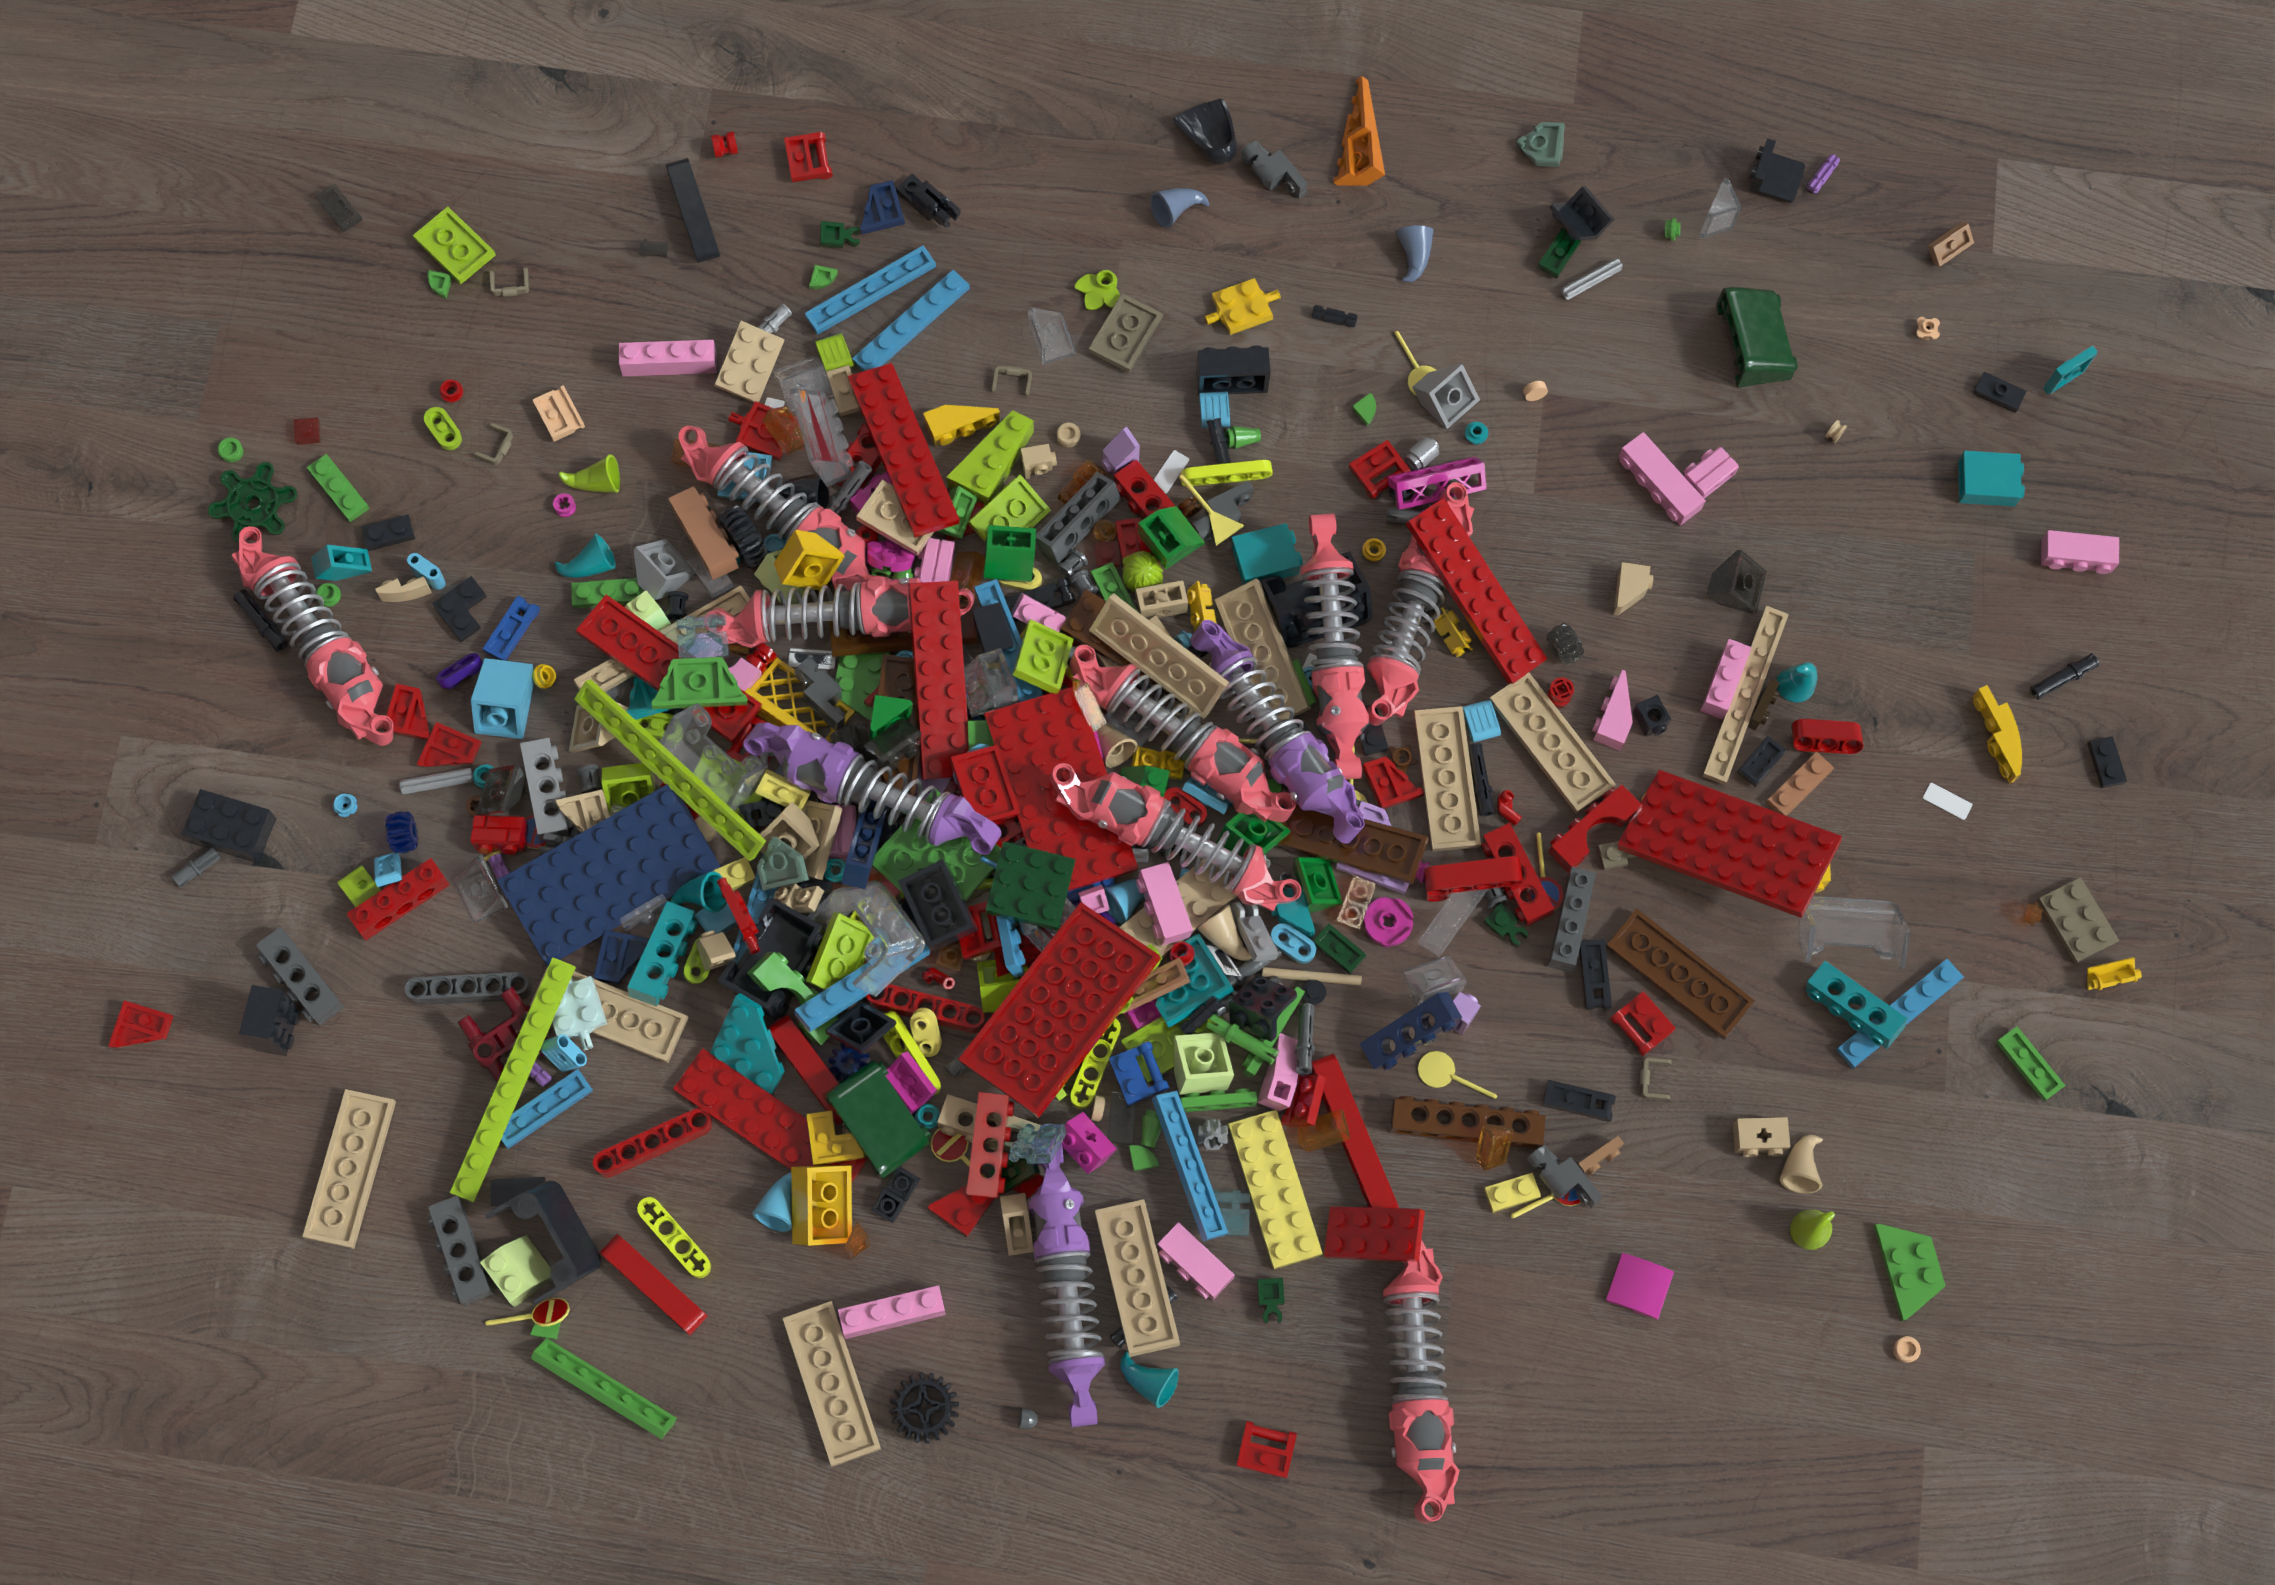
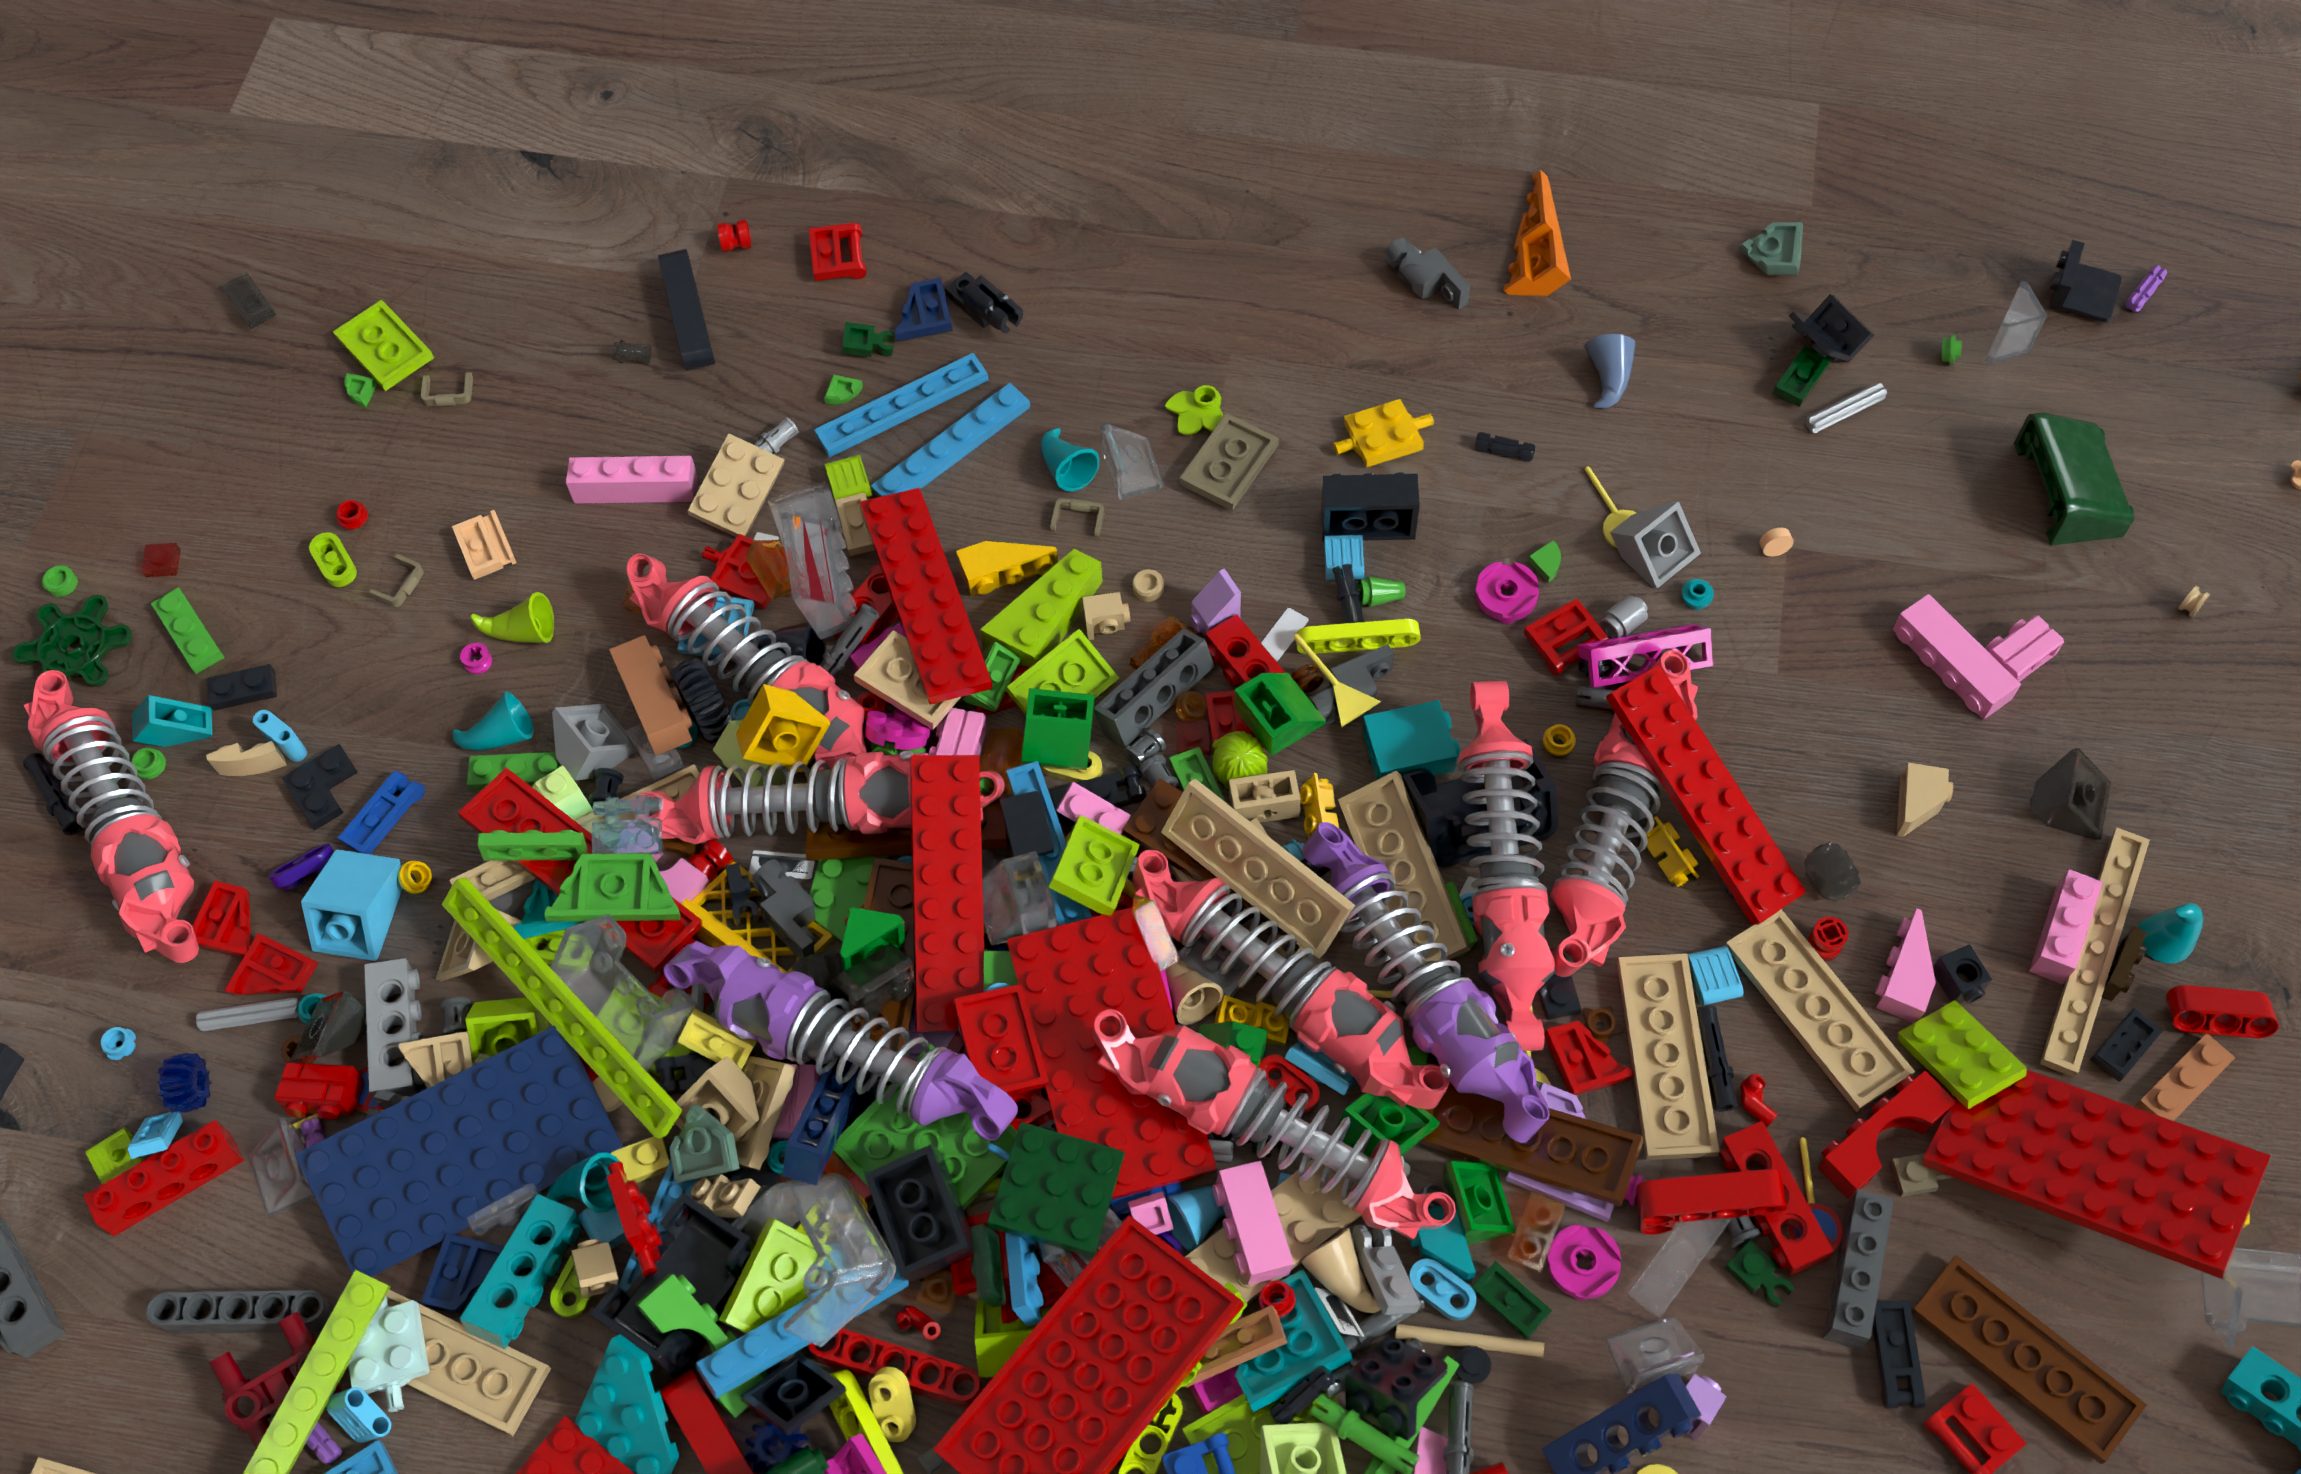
camera: 10 degrees right, 10 degrees down
(635, 653) = (531, 845): none -> bright green plate
(785, 679) = (738, 888): none -> black plate
(986, 939) = (987, 1266): none -> clear green plate
(1002, 337) = (1069, 464): none -> teal hat
(1170, 204) = (1293, 309): sand blue hat -> none
(1211, 130) = (1347, 227): black hair -> none
(1336, 422) = (1502, 607): none -> dark pink plate
(1648, 771) = (1962, 1054): none -> lime plate

